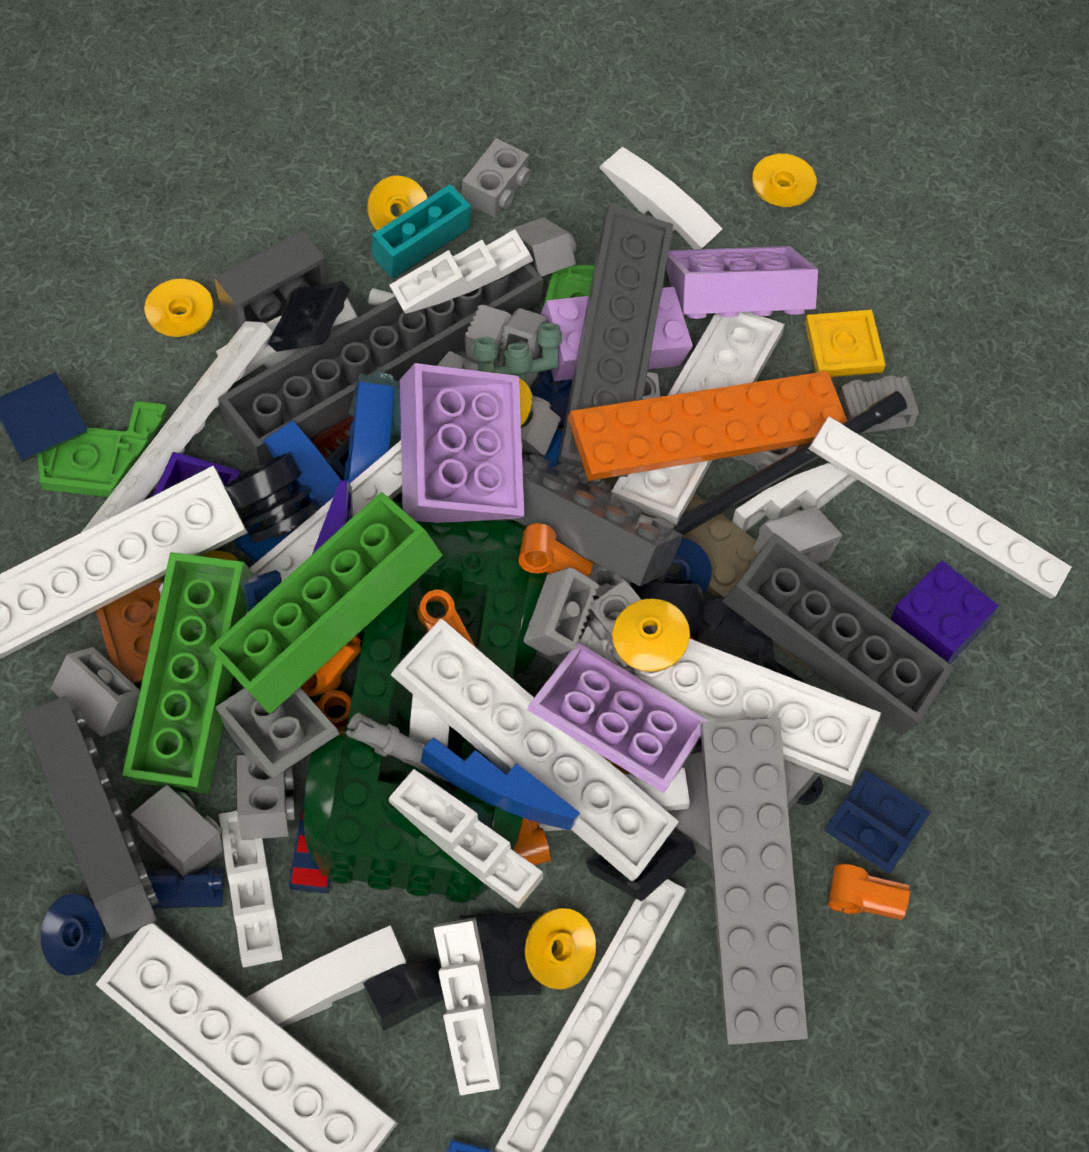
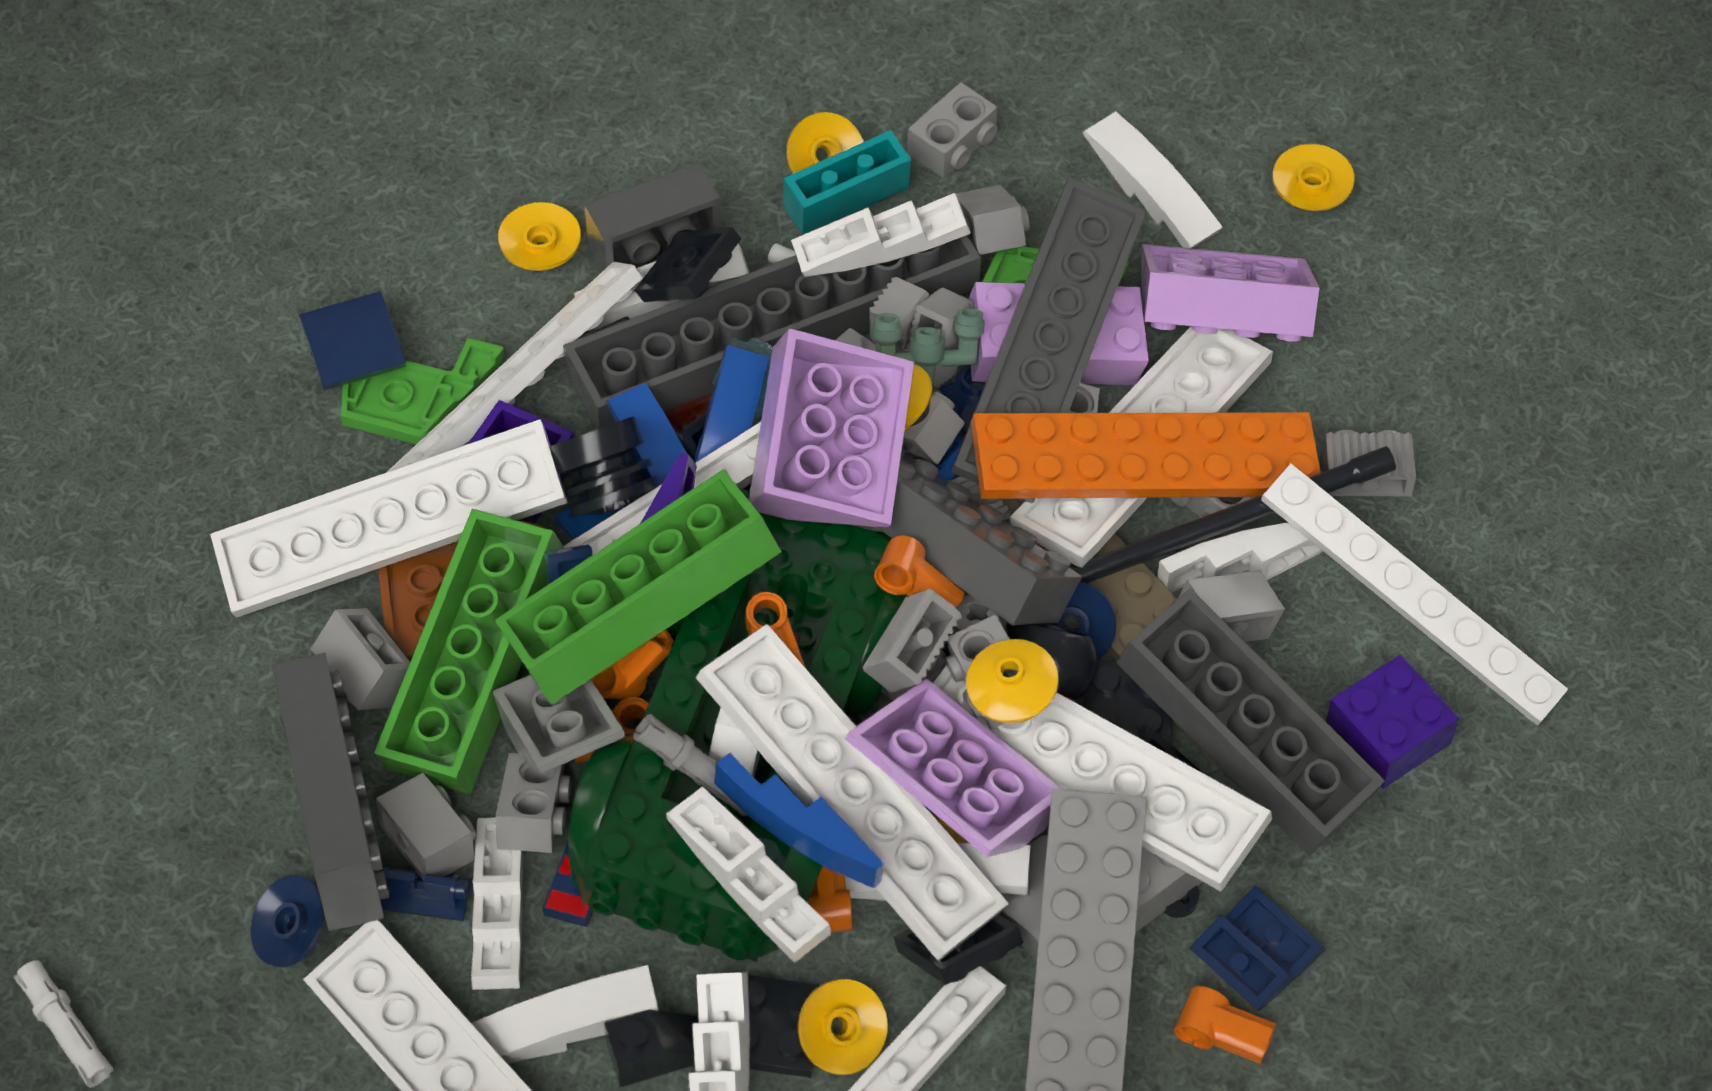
camera: 15 degrees right, 5 degrees down
(845, 343) = (1346, 385): yellow plate -> none

